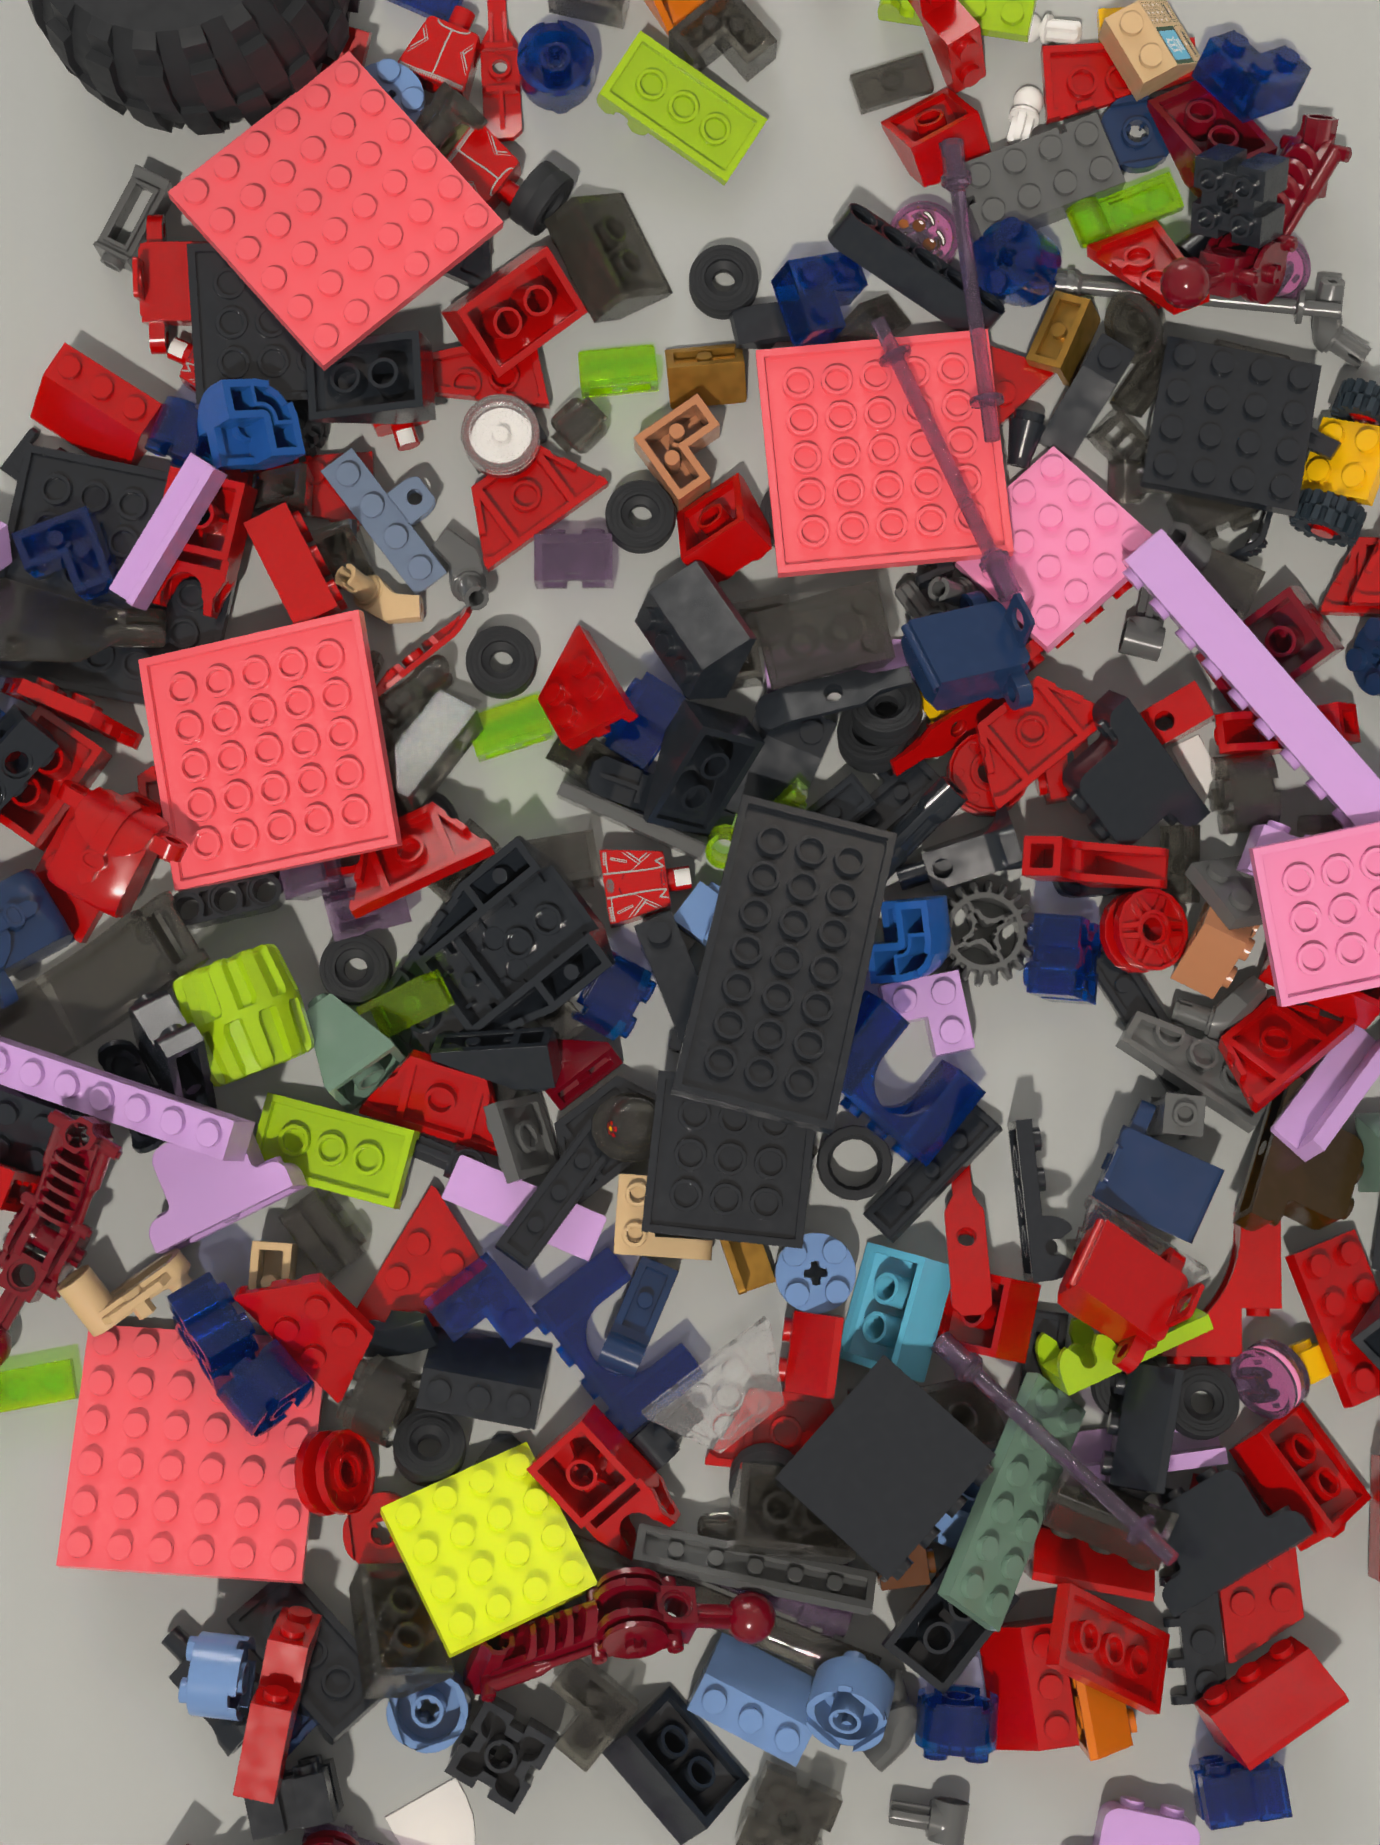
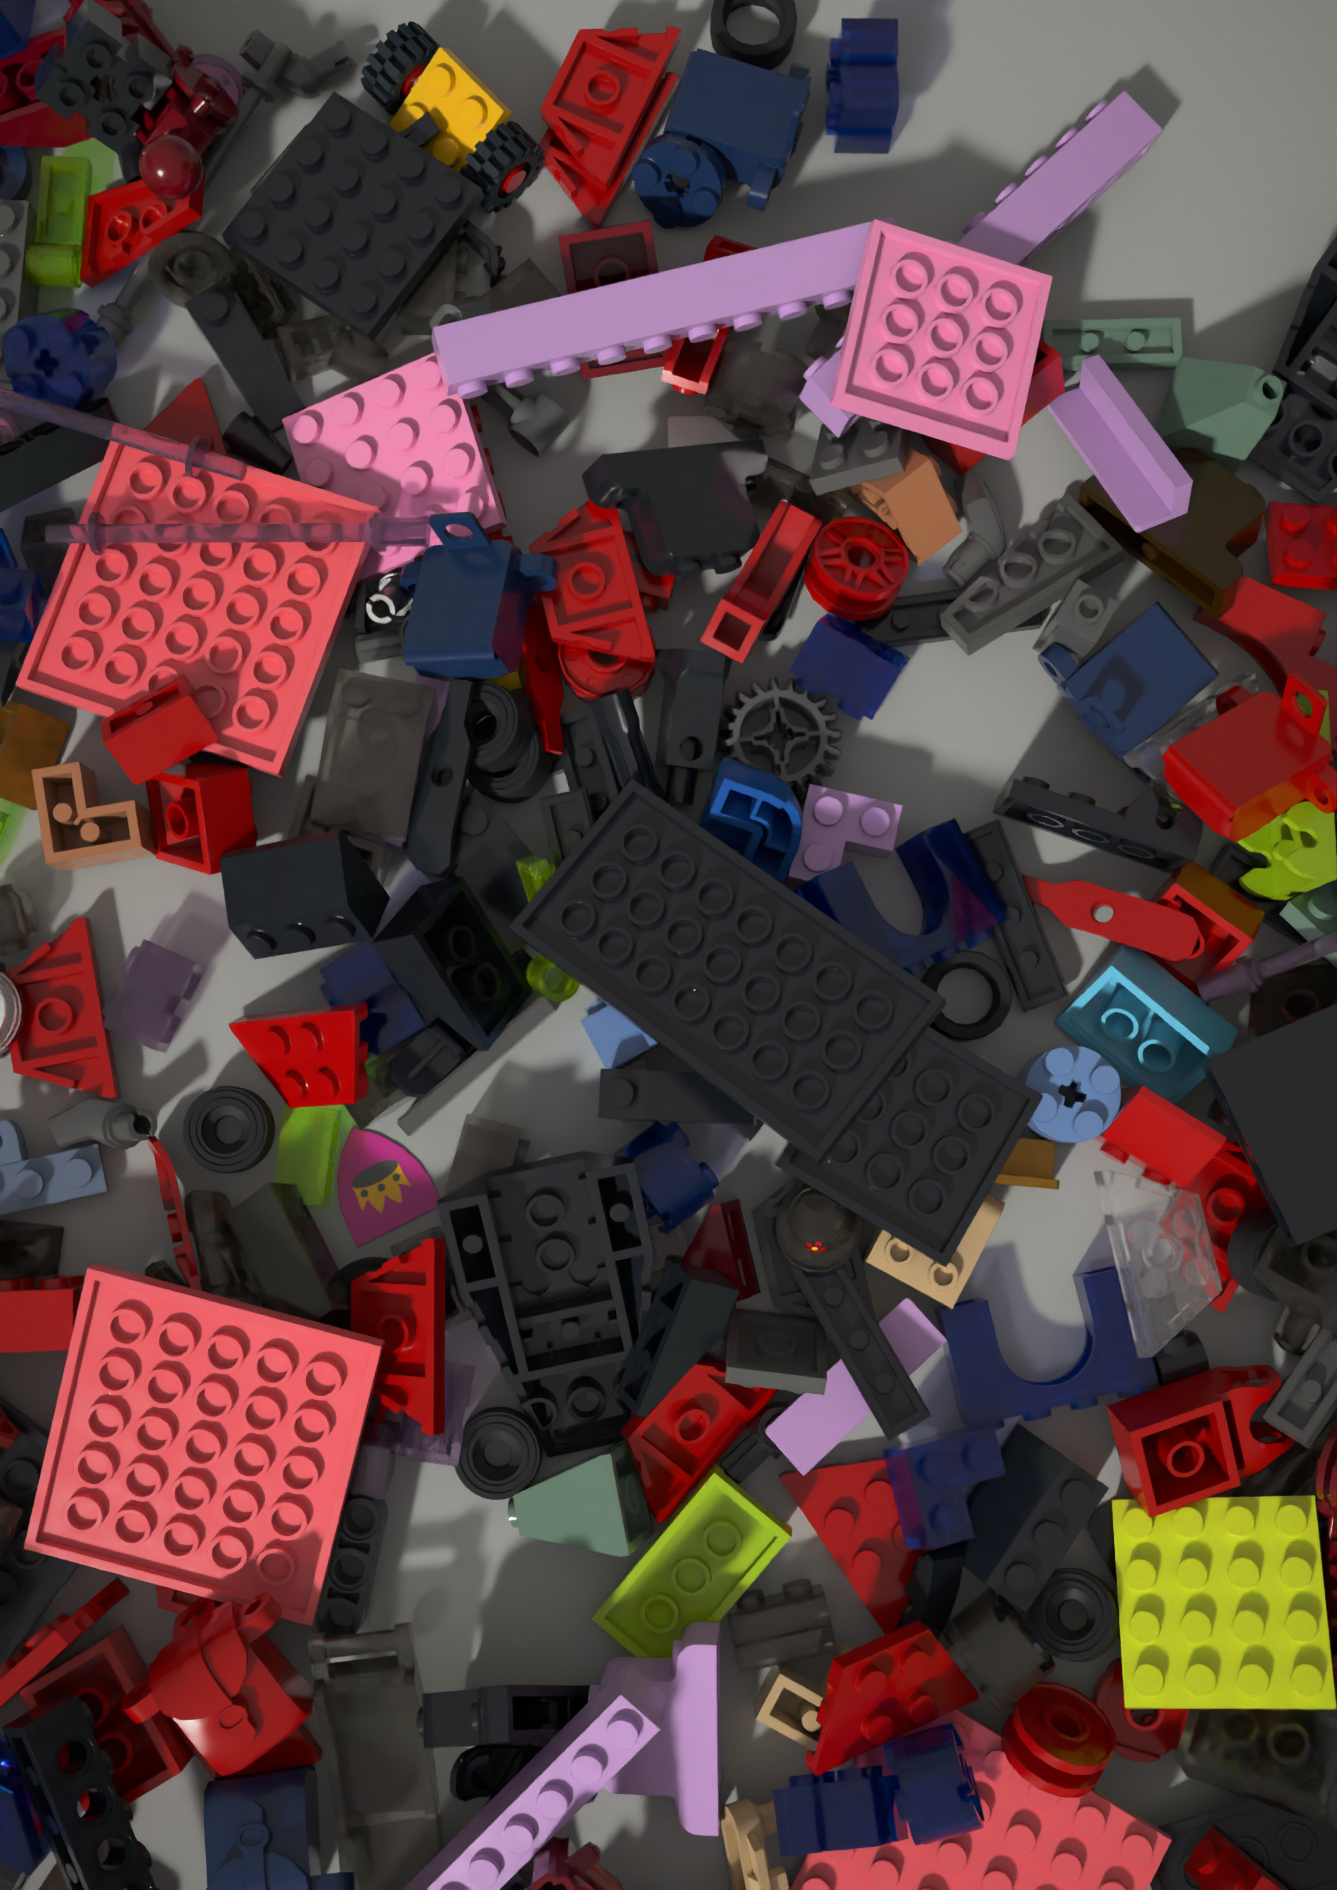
camera: 70 degrees left, 0 degrees up
(245, 1013) = (493, 1611): lime wheel -> none
(378, 598) = (88, 1235): tan arm -> none
(409, 1003) = (567, 1411): clear neon green panel -> none
(510, 792) = (380, 1186): none -> dark pink sticker
(637, 1317) = (1033, 1314): dark blue plate -> none
(639, 884) = (550, 1089): red torso -> none
(640, 494) = (114, 891): black tyre -> none
(768, 471) = (158, 731): none -> red panel
(1064, 336) = (166, 349): pearl gold panel -> none
(1185, 708) = (640, 413): red torso -> none
(1277, 1047) = (1047, 488): red wing -> none

